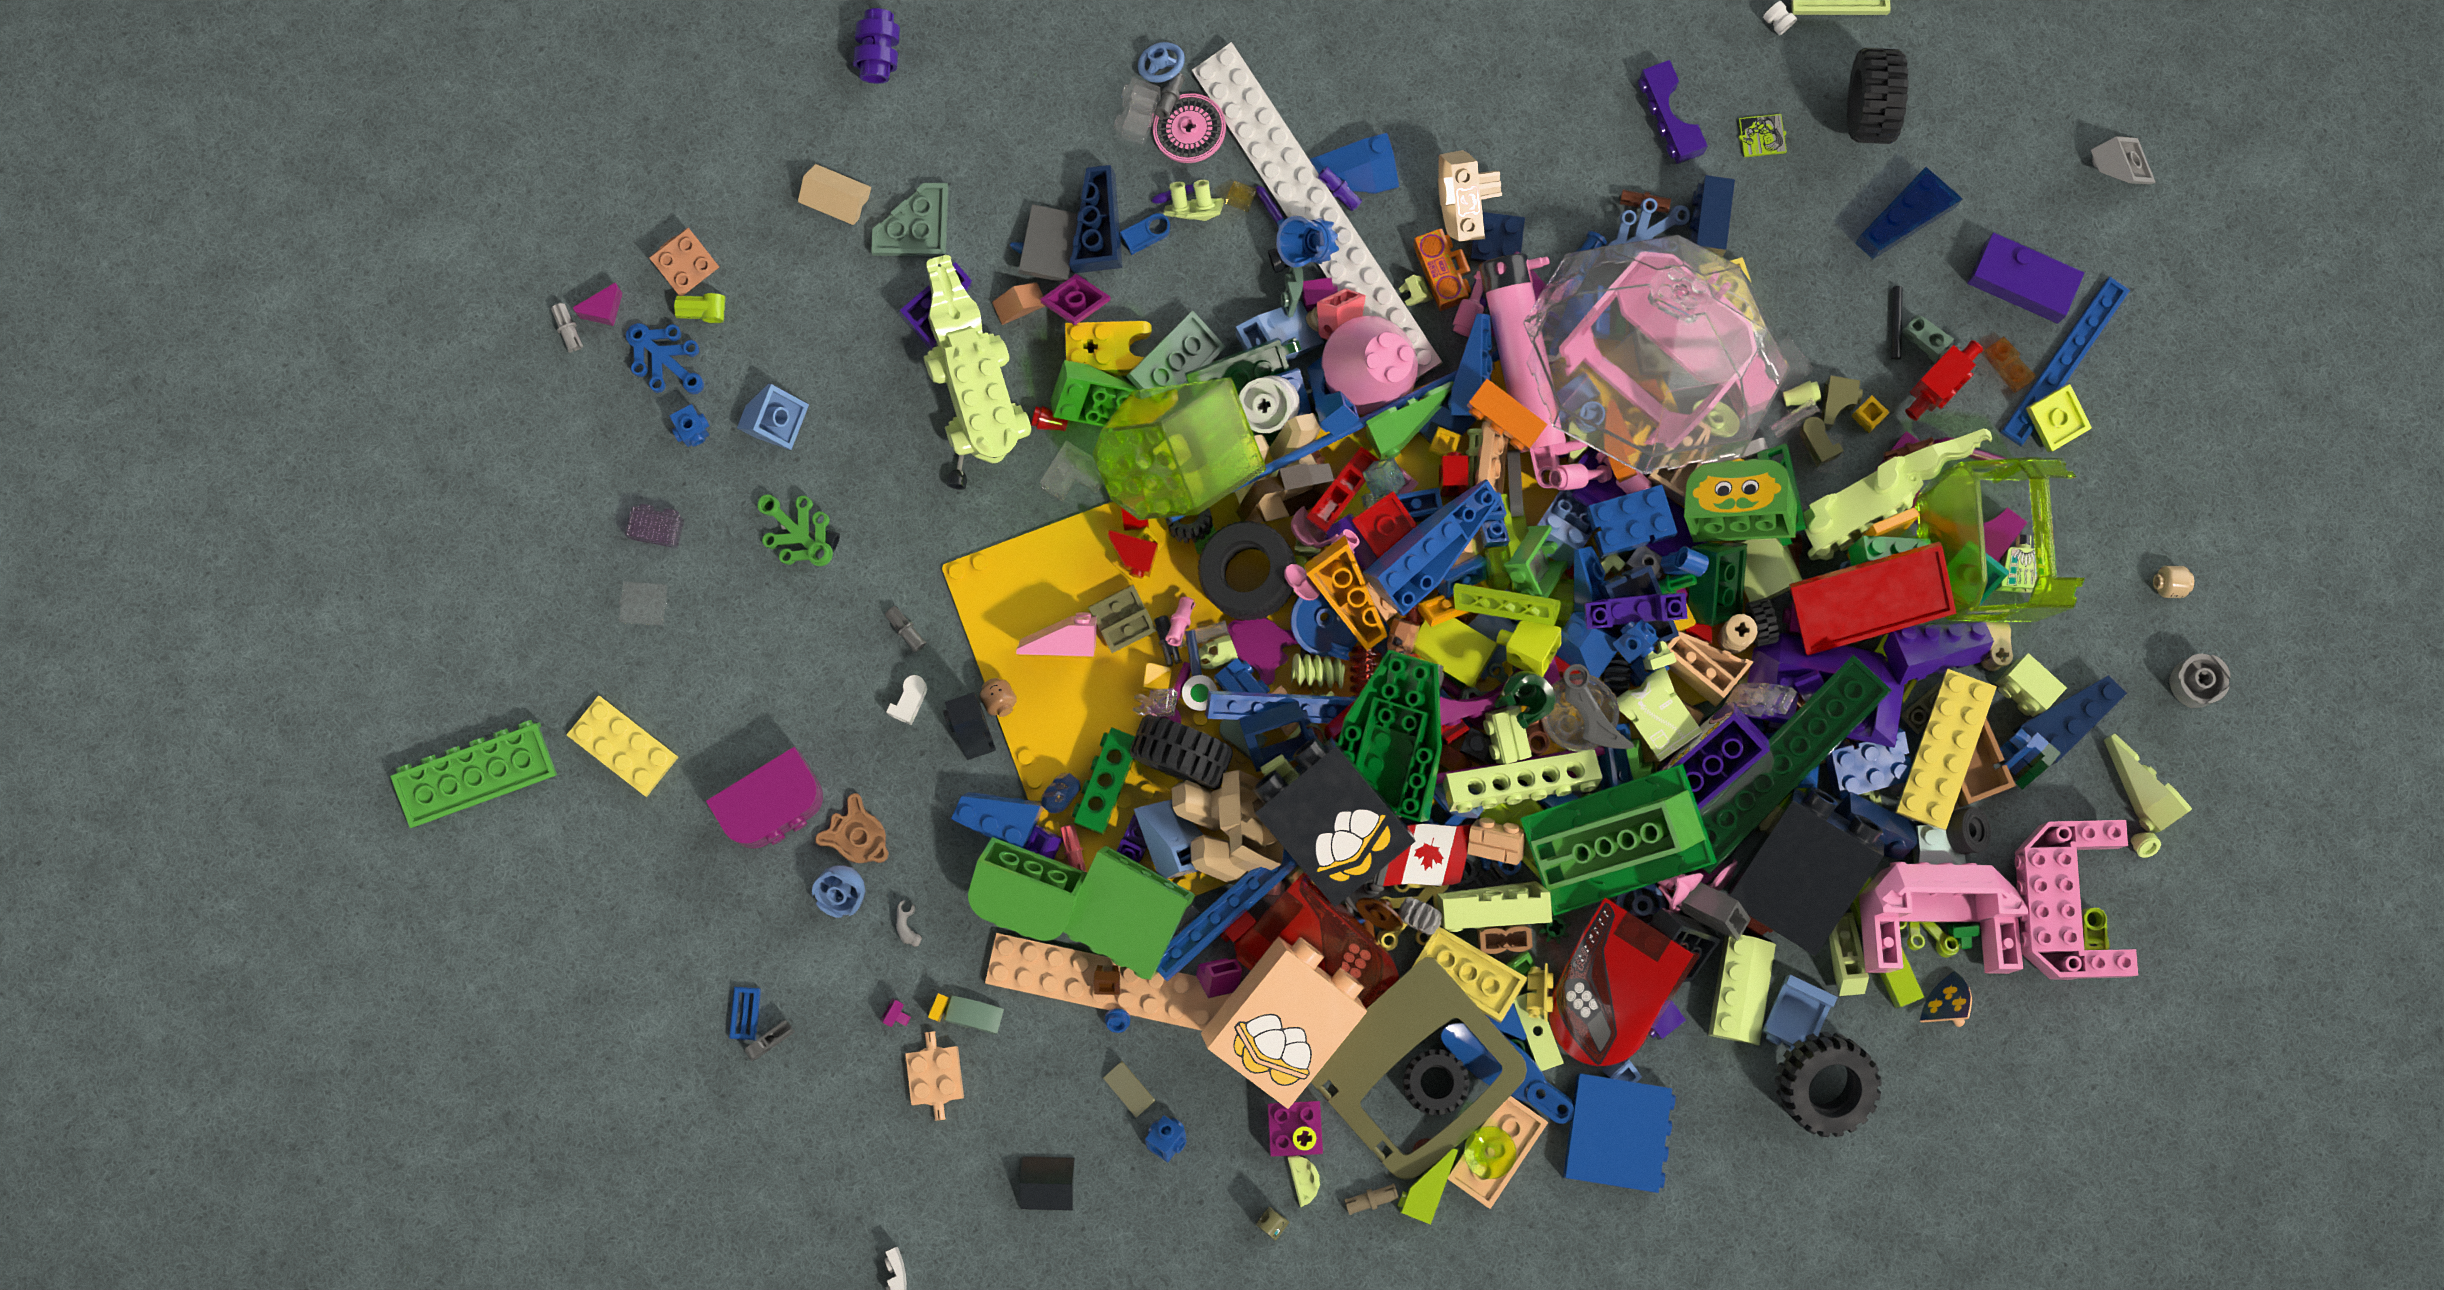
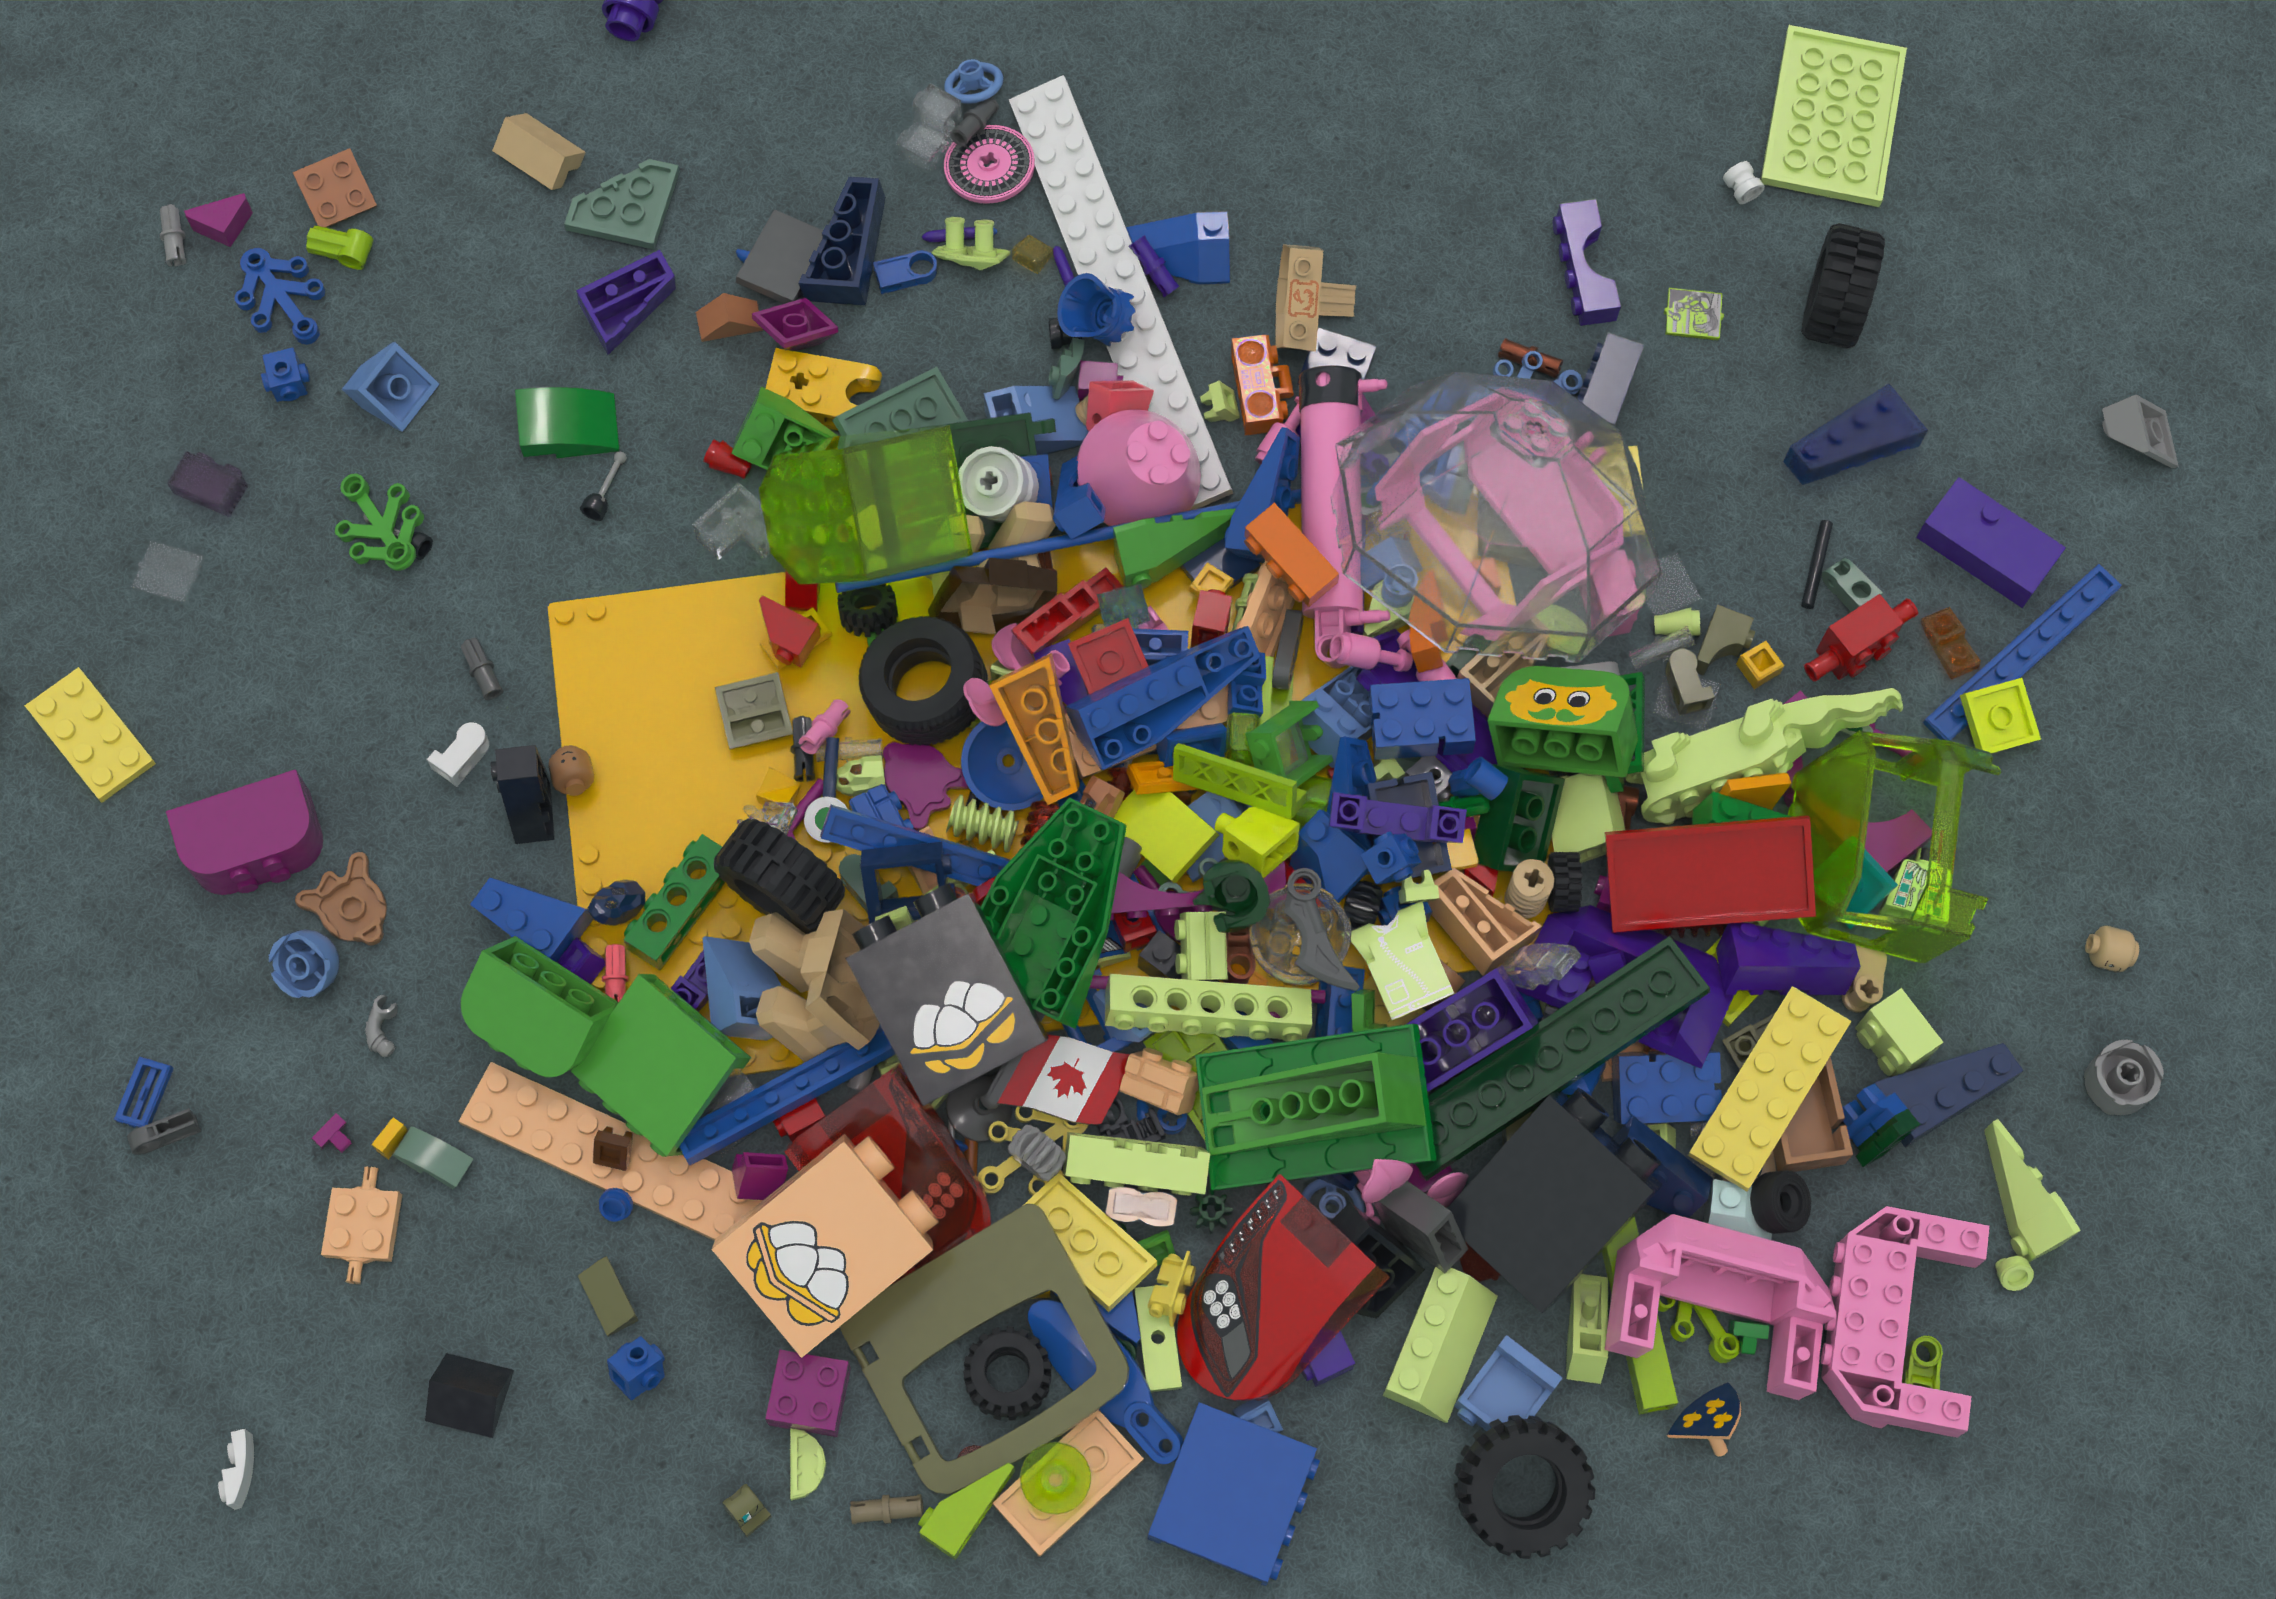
camera: 10 degrees right, 10 degrees down
(915, 415) = (566, 421): none -> green slope
(970, 366) = (644, 379): yellowish green animal -> none
(1067, 637) = (678, 712): bright pink slope -> none
(1299, 1131) = (808, 1392): neon yellow bush -> none
(1340, 650) = (1016, 802): blue bush -> none
(1379, 913) = (985, 1139): reddish brown dish -> none
(1453, 759) = (1126, 963): reddish brown slope -> none

